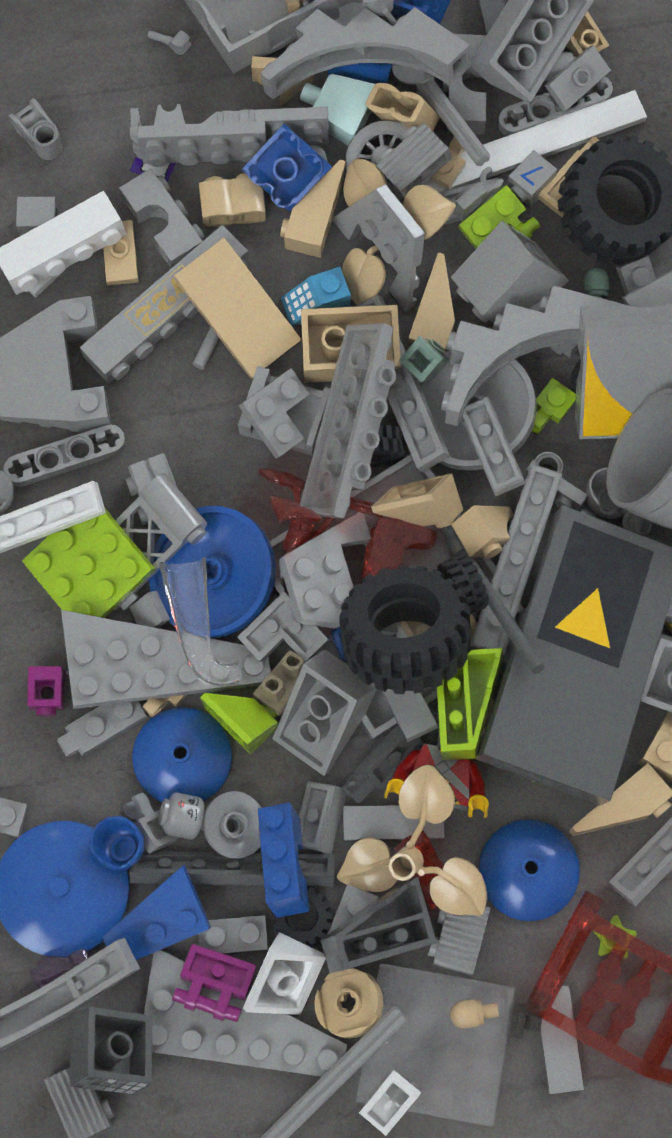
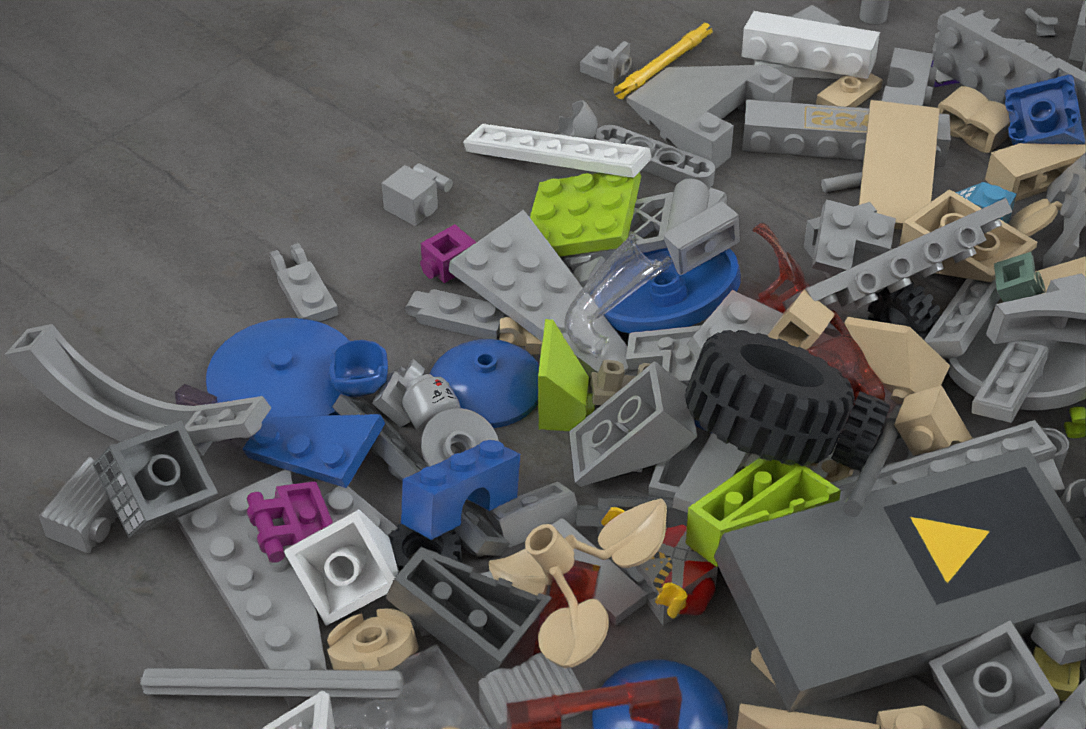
camera: 50 degrees right, 30 degrees down
(209, 523) = (702, 237): none -> light grey slope
(348, 539) = (802, 322): none -> tan brick

